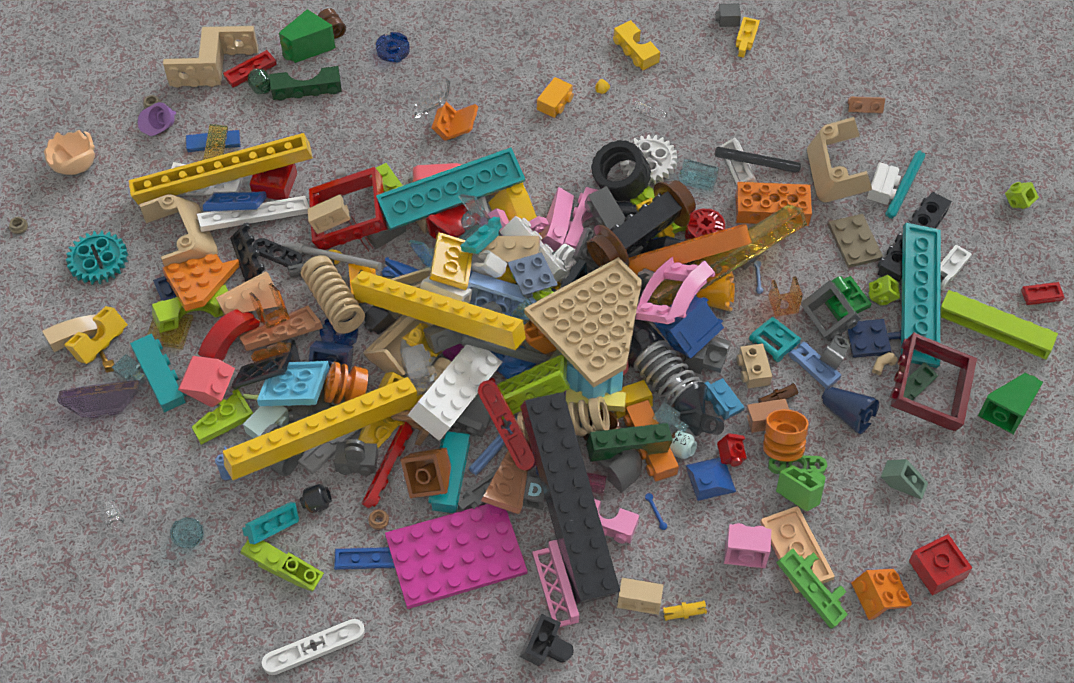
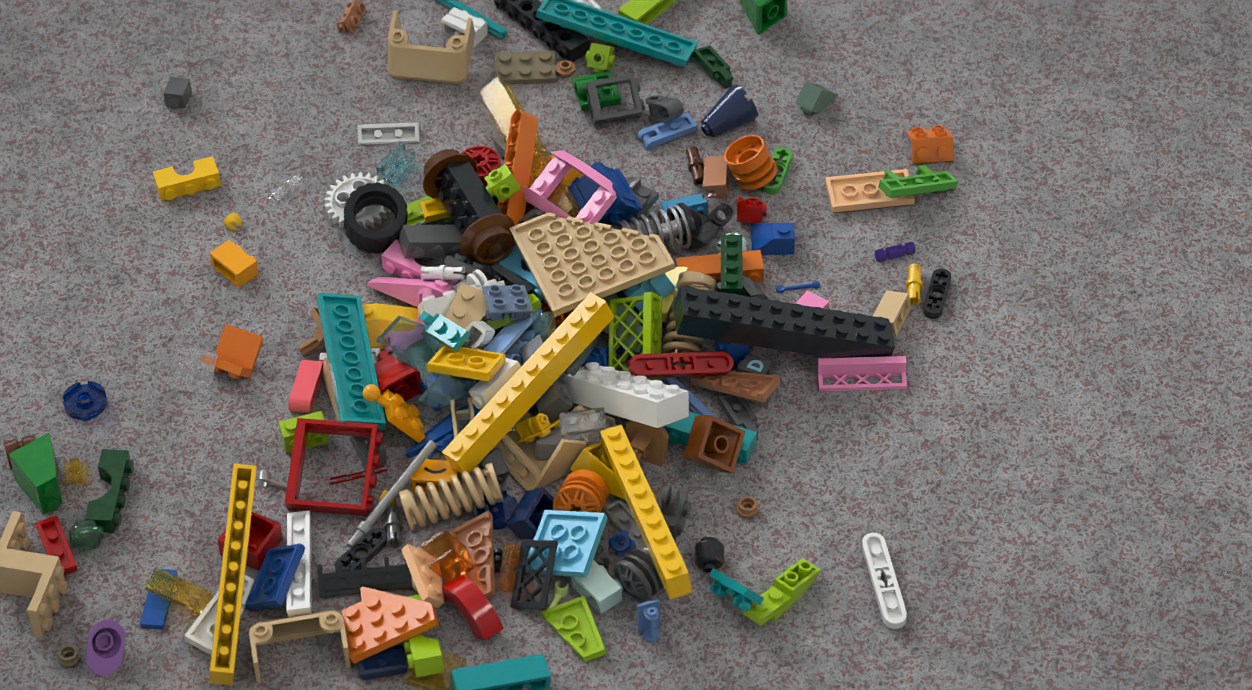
camera: 75 degrees left, 10 degrees down
(187, 527) = (721, 667): clear light blue hair -> none
(206, 380) = (529, 628): coral slope -> none
(323, 60) = (75, 471): none -> clear yellow tile
(328, 214) = (341, 477): tan hinge -> none
(363, 558) = (789, 526): blue tile -> none
(380, 479) = (702, 497): red piece -> none
(403, 233) = (398, 412): none -> light orange plate
(455, 554) = (805, 451): dark pink plate -> none
(544, 642) = (924, 391): black brick -> none
(571, 230) = (442, 273): none -> white pin
(662, 237) = (502, 183): none -> lime brick
(669, 415) = (705, 242): clear light blue plate -> none
(680, 626) = (935, 287): none -> black beam
(725, 586) = (894, 251): none -> dark purple axle
(746, 35) = (214, 86): yellow hinge -> none
(747, 545) = (863, 217): bright pink brick -> none
(754, 365) = (657, 172): tan brick -> none
(757, 159) = (397, 112): black axle -> none
(761, 200) = (442, 129): orange brick -> none
(779, 335) = (626, 147): teal plate -> none
(794, 298) = (583, 128): clear orange piece -> none
(801, 487) = (810, 166): bright green brick -> none
(865, 273) = (565, 68): none -> medium nougat plate
(871, 338) = (651, 81): dark blue plate -> none
(888, 358) = (678, 82): tan arm -> none
(940, 564) = (915, 93): red container -> none
(947, 354) = (729, 31): dark red window -> none

